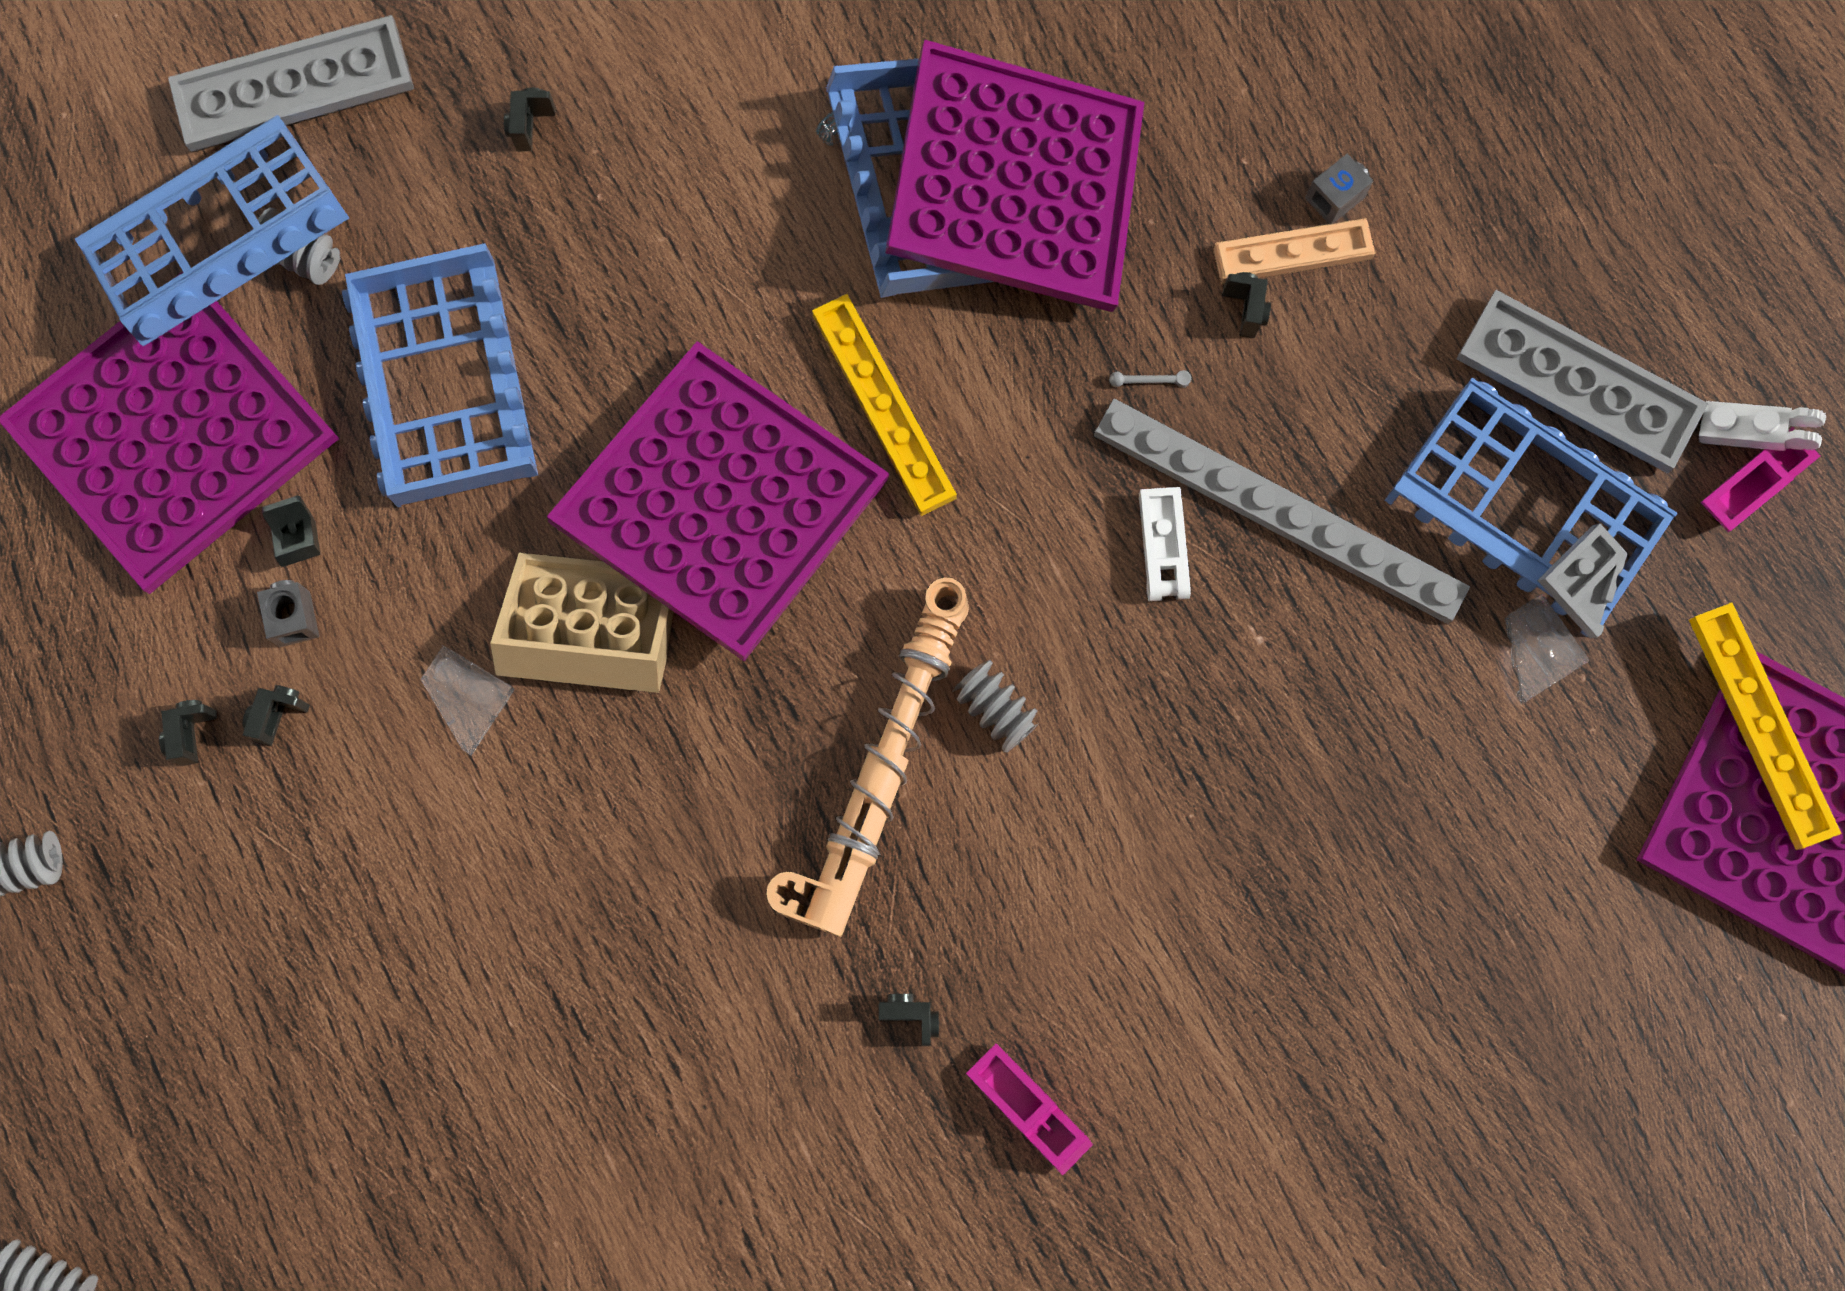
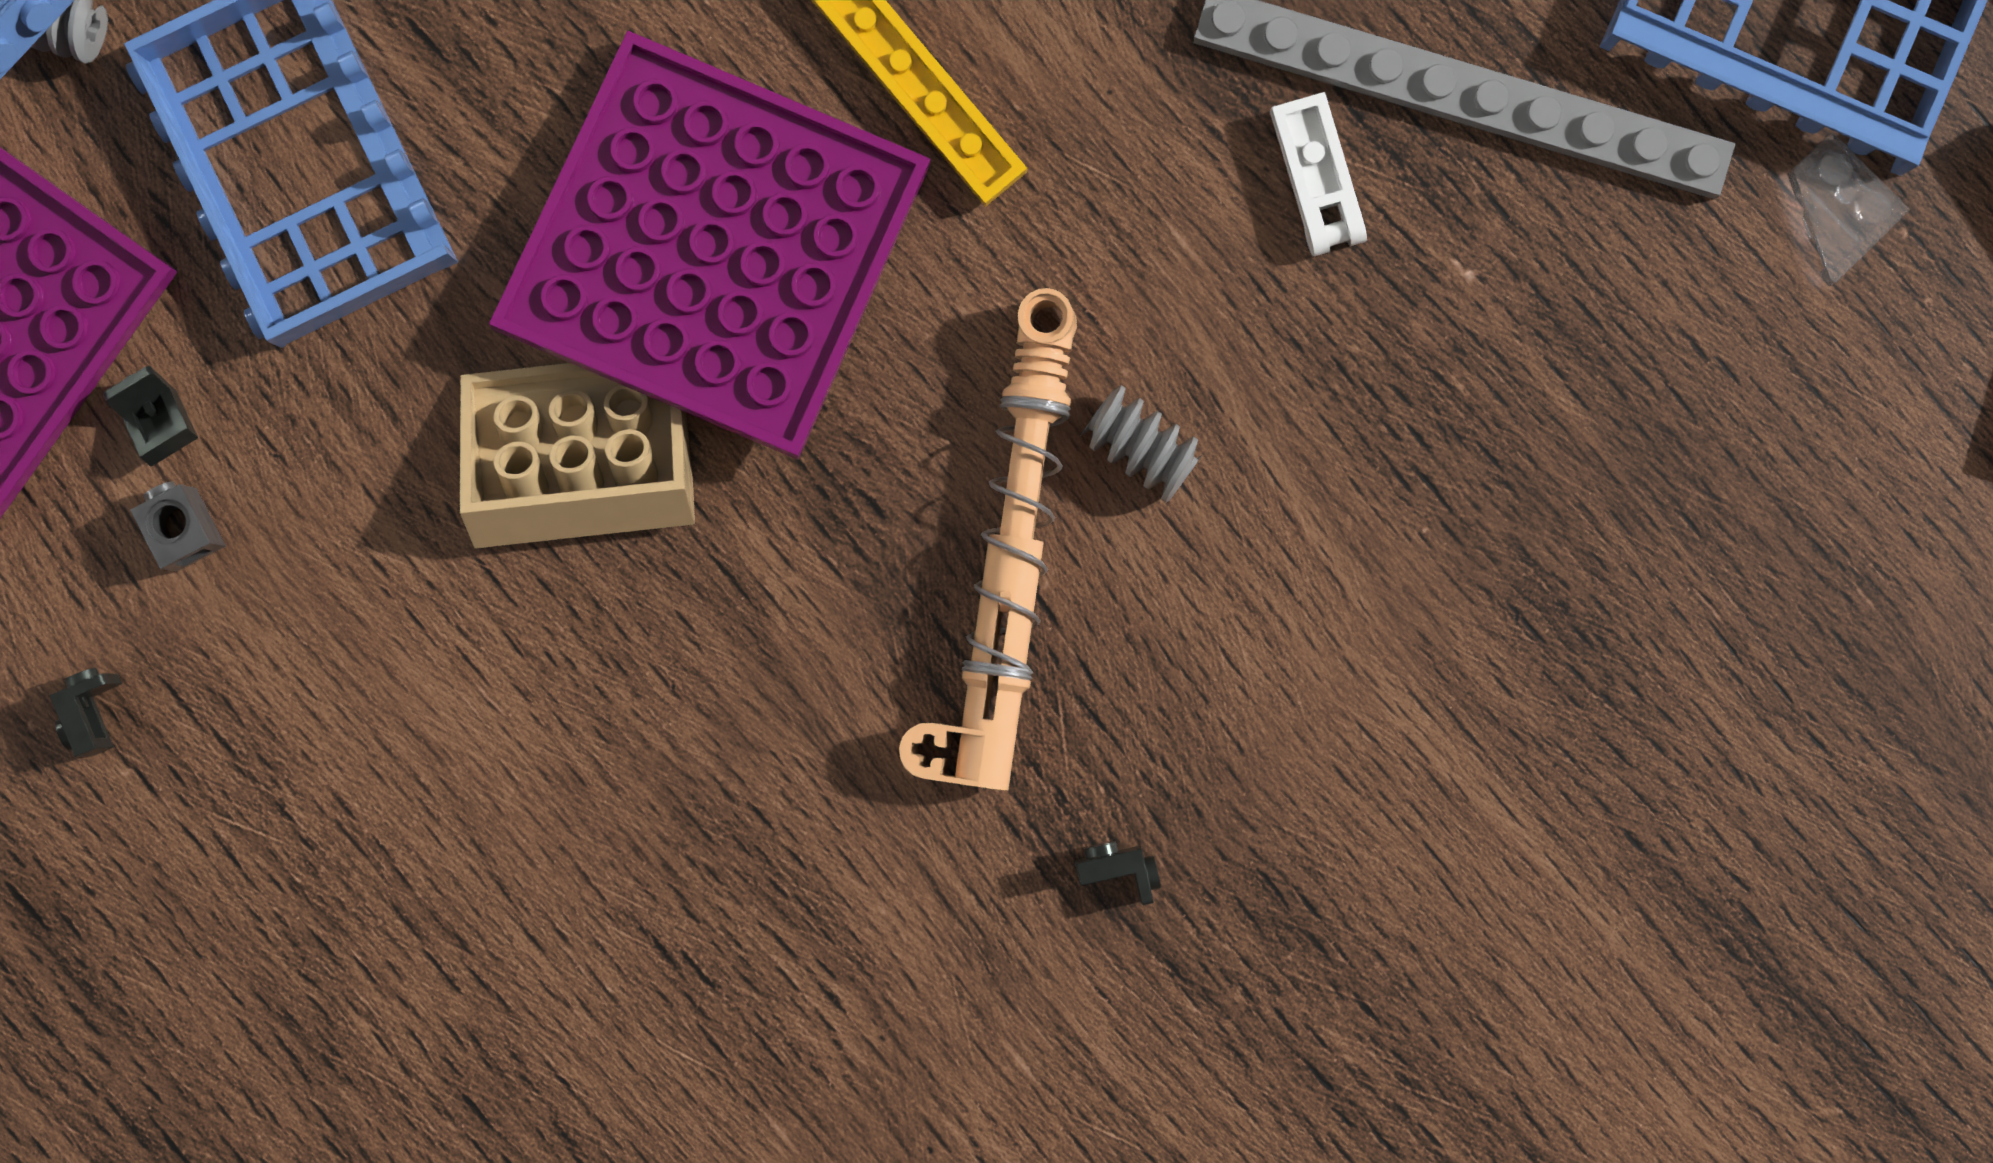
camera: 10 degrees left, 10 degrees up
(264, 716) = (185, 666): pearl dark grey bracket -> none
(465, 696) = (440, 583): clear wing -> none
(1029, 1109) = (1294, 951): dark pink slope -> none
(1586, 578) = (1890, 103): light grey wing -> none

